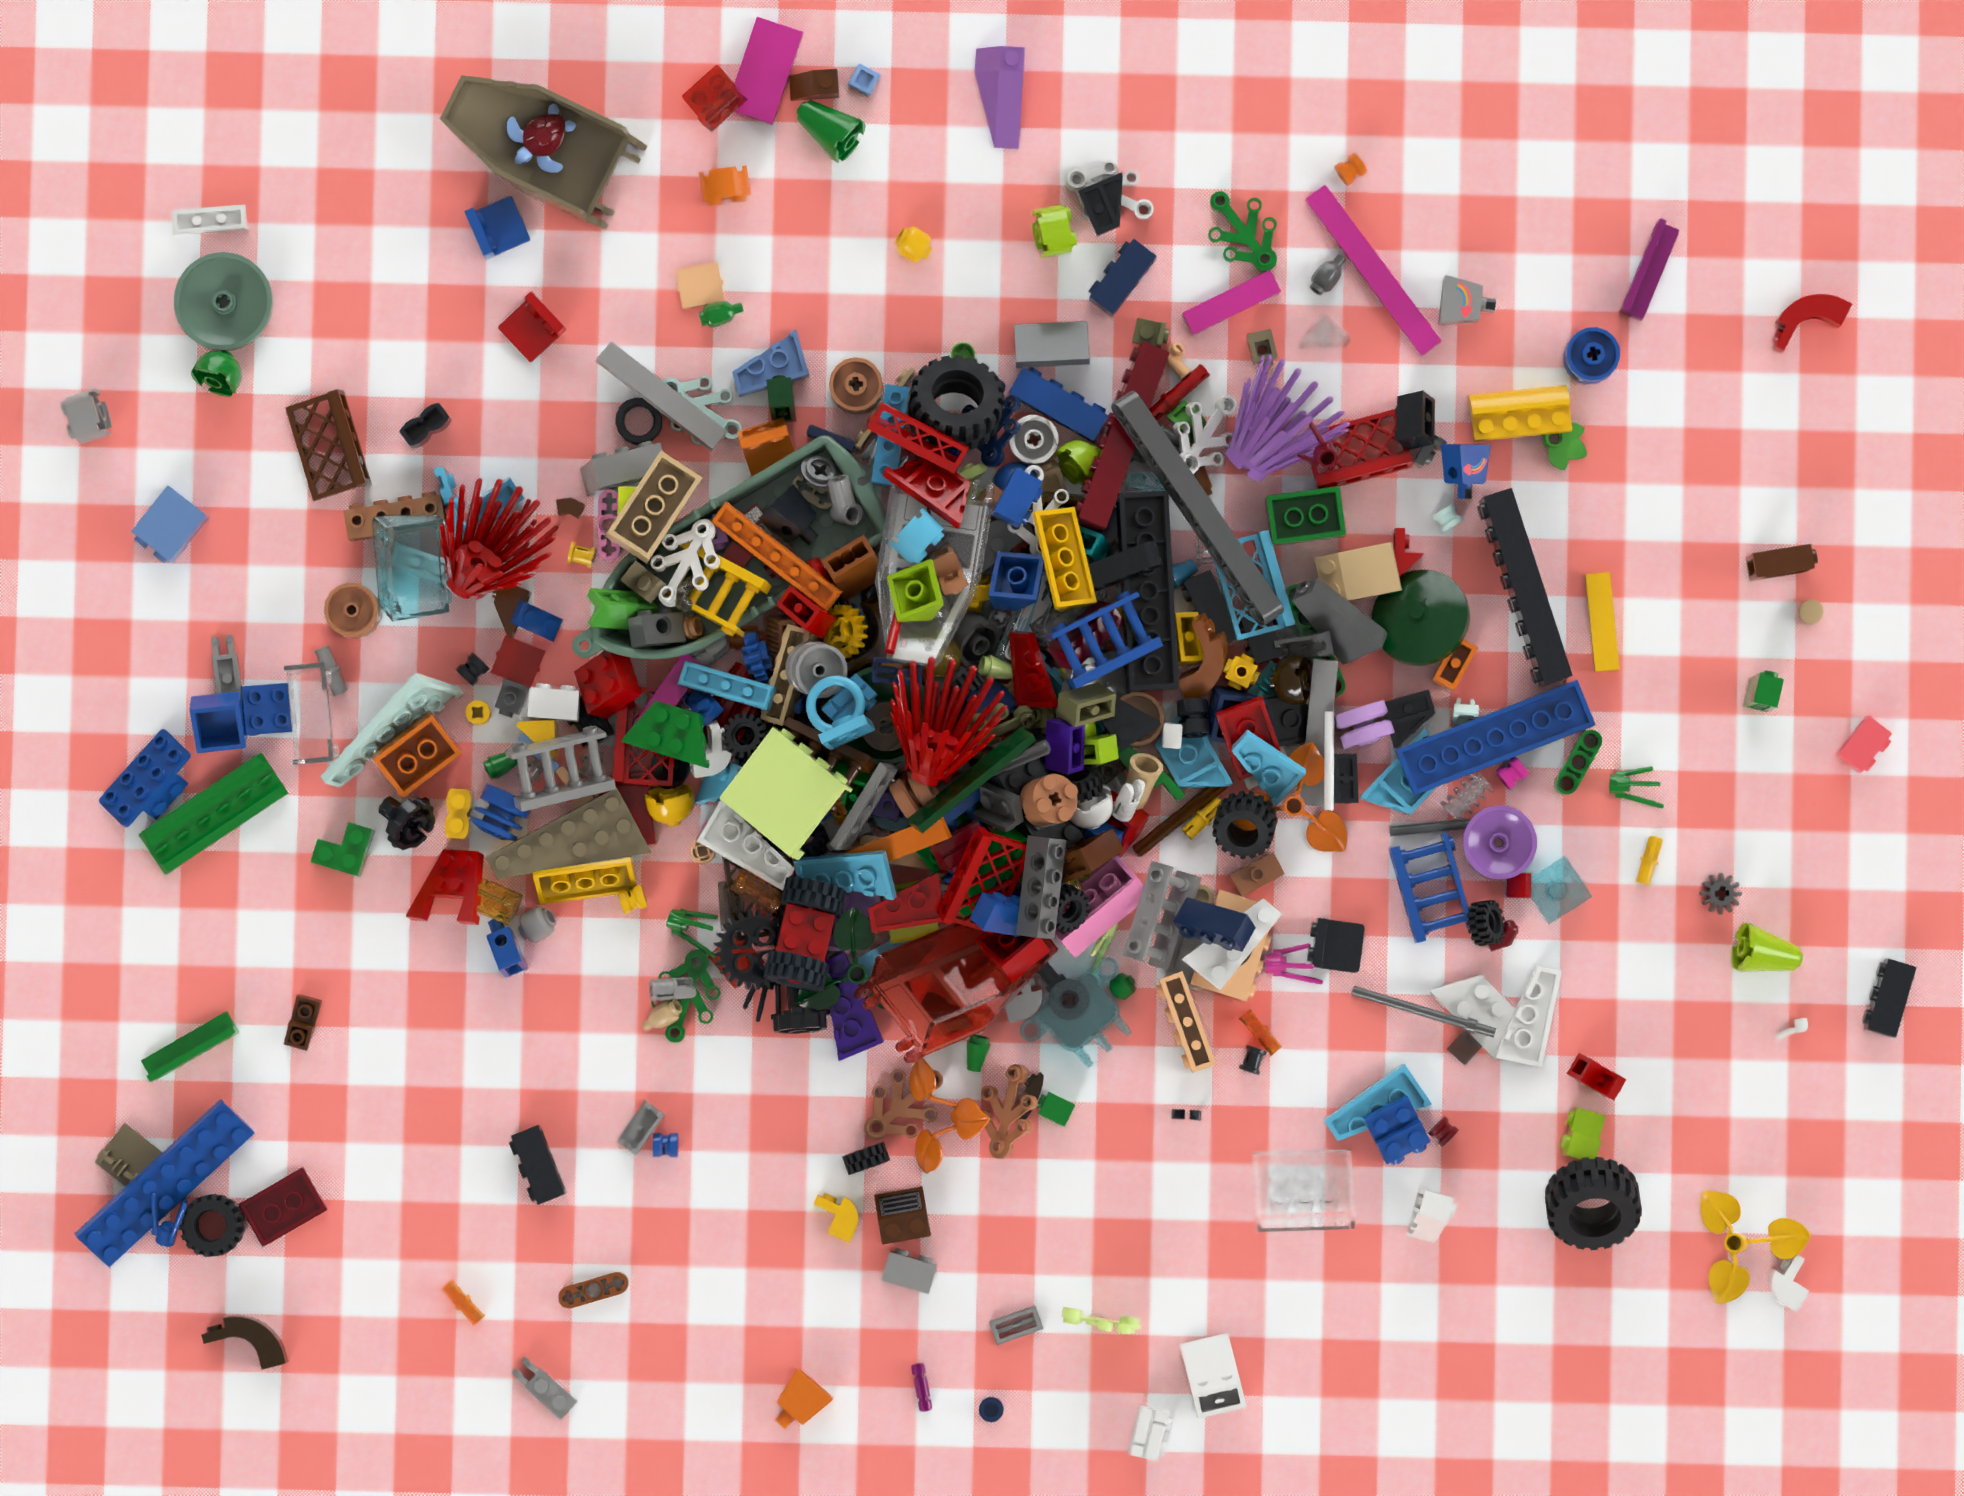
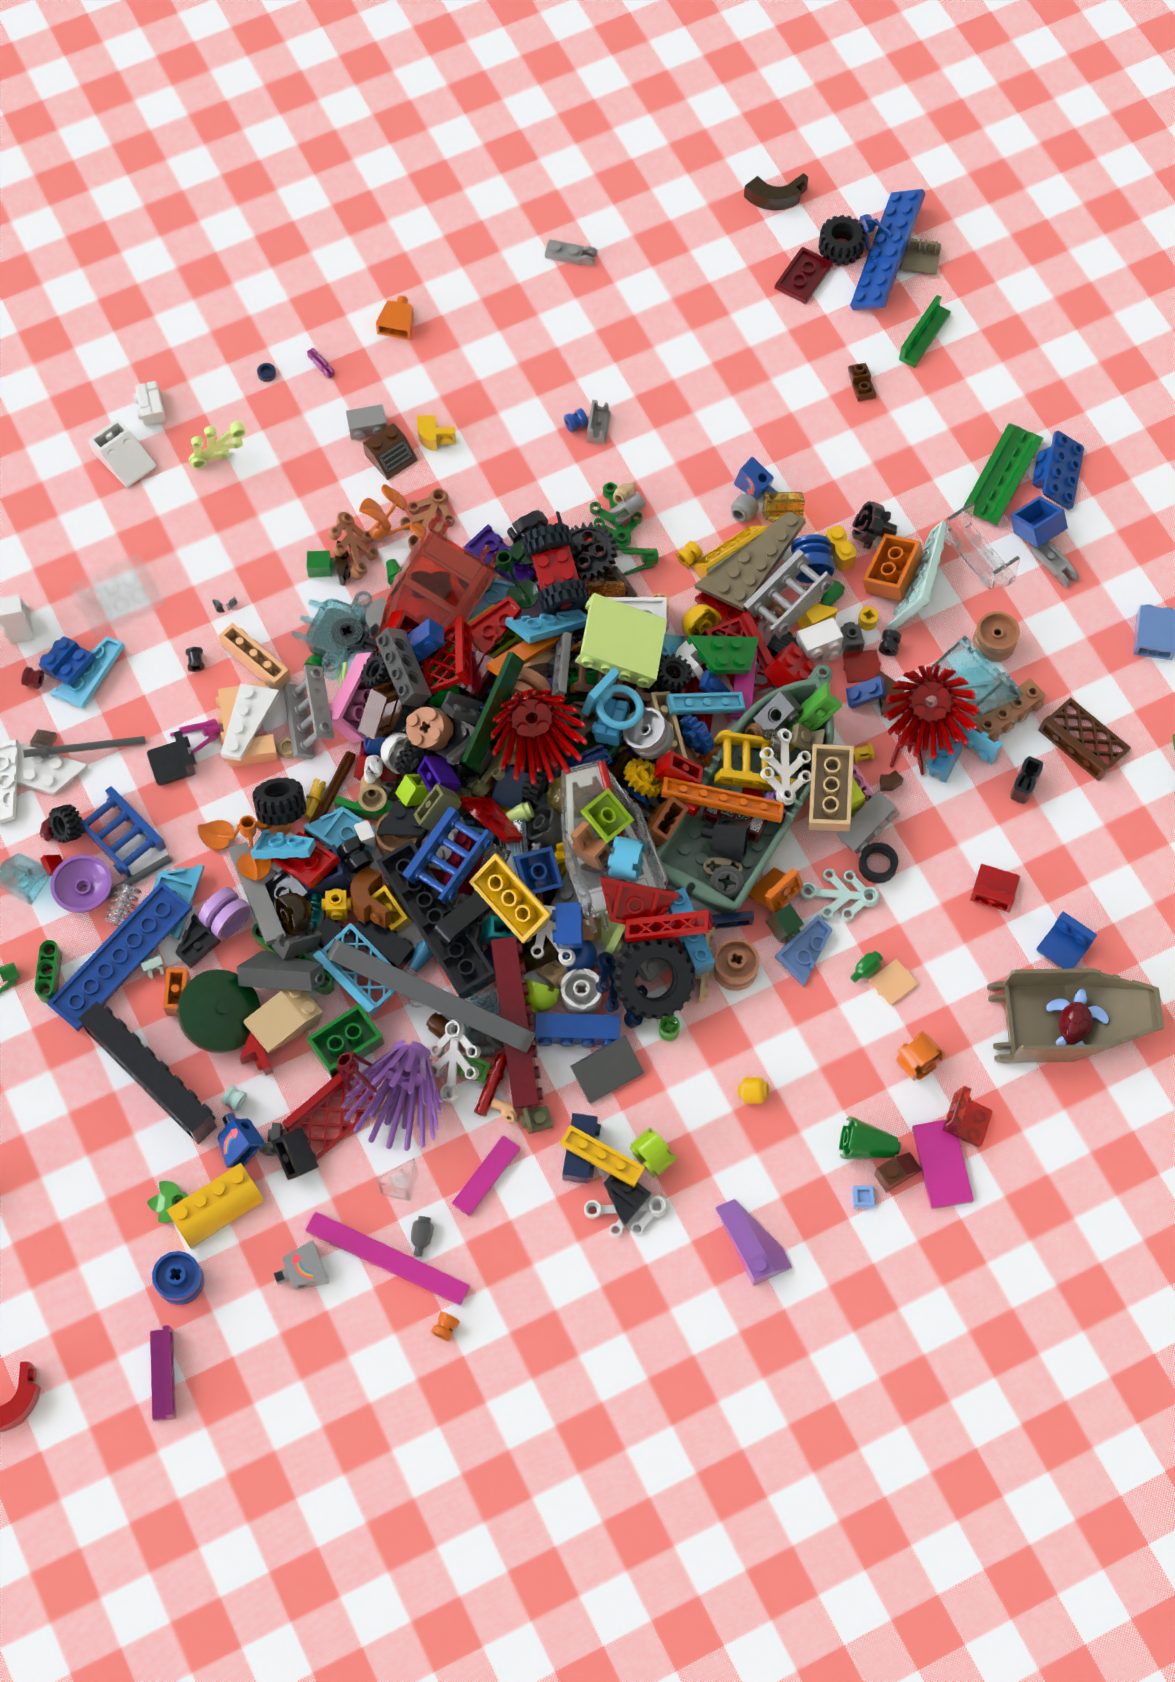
camera: 155 degrees right, 20 degrees down
(266, 709) = (1014, 544): blue hinge -> none
(325, 655) = (985, 595): light grey pin -> none
(348, 856) = (899, 487): green brick -> none
(454, 877) = (816, 505): red wing -> none
(462, 1302) = (653, 273): clear orange pin -> none
(537, 1165) = (653, 370): black brick -> none
(609, 1278) = (573, 312): dark orange beam -> none
(661, 396) = (873, 883): light grey tile -> none
(844, 507) = (696, 867): light grey piece -> none
(866, 1158) = (434, 470): black tyre -> none
(996, 1332) = (278, 429): light grey tile -> none
(1108, 250) = (602, 1156): none -> yellow plate
(1214, 924) = (266, 719): dark blue brick -> none
(1245, 234) = (503, 1232): green plant -> none
(1257, 874) = (258, 774): nougat plate -> none
(1258, 339) = (443, 1142): dark tan brick -> none
(1260, 1032) = (198, 679): clear orange pin -> none
(1328, 760) = (238, 874): white bar -> none
(1345, 779) = (222, 870): black hinge -> none
(1510, 774) = (95, 939): dark pink wheel -> none
(1602, 622) = (77, 1084): yellow tile -> none

